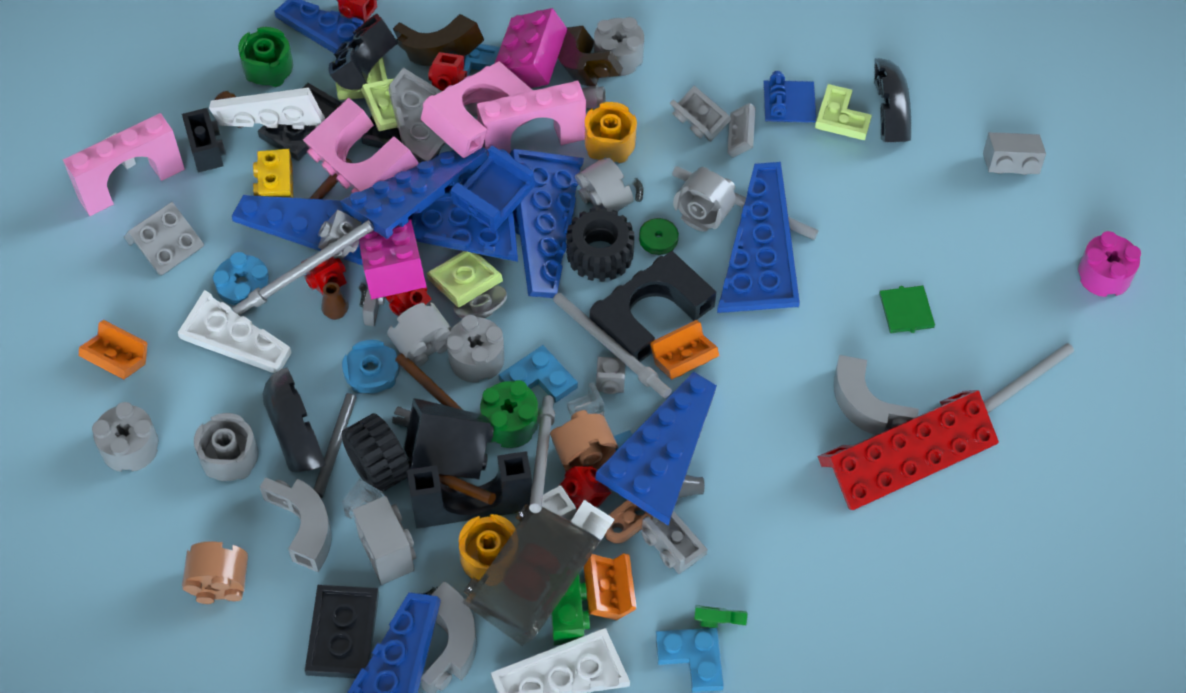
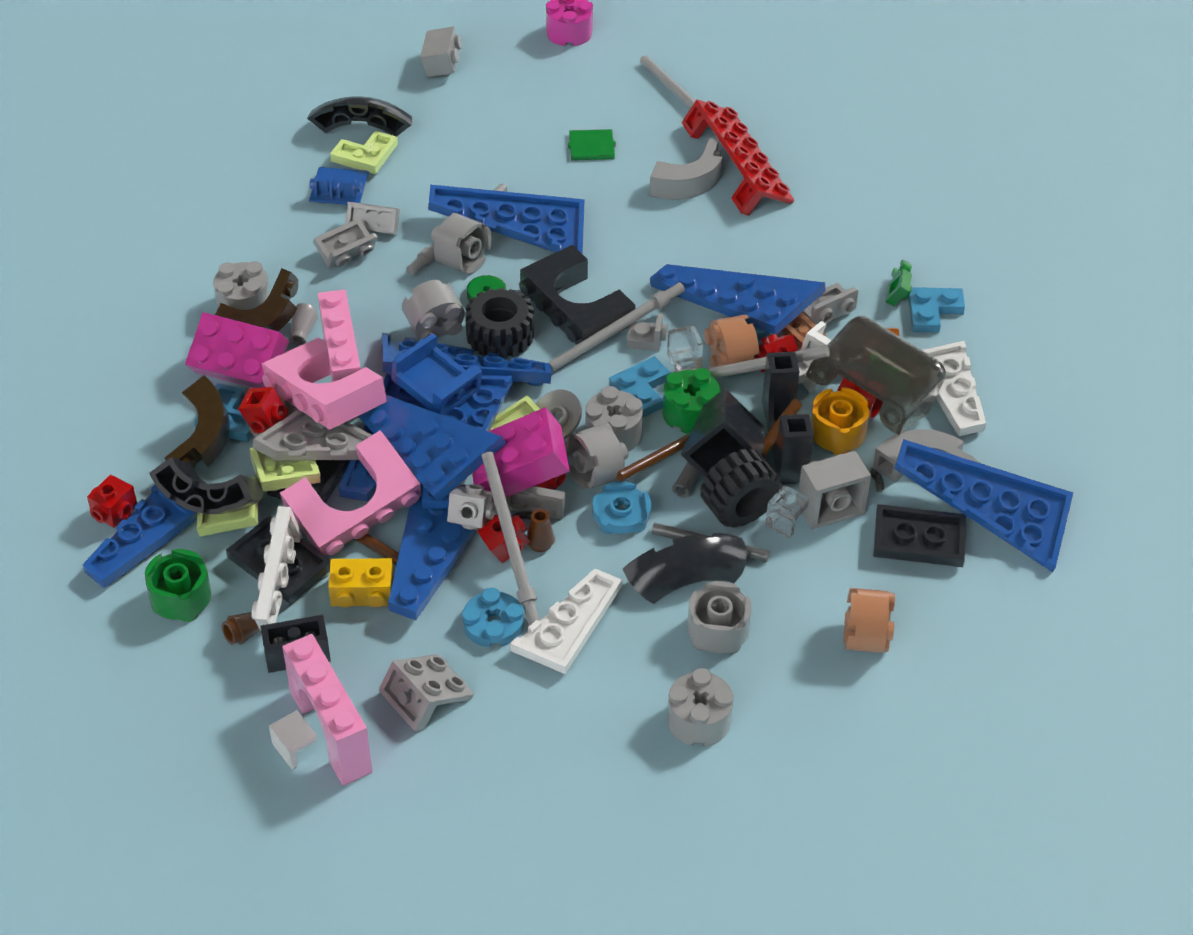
camera: 85 degrees left, 10 degrees down
(115, 350) = (581, 726): orange bracket -> none
(314, 536) = (803, 552): light grey arch -> none
(610, 132) = (366, 302): light orange brick -> none
(683, 350) = (630, 279): orange bracket -> none

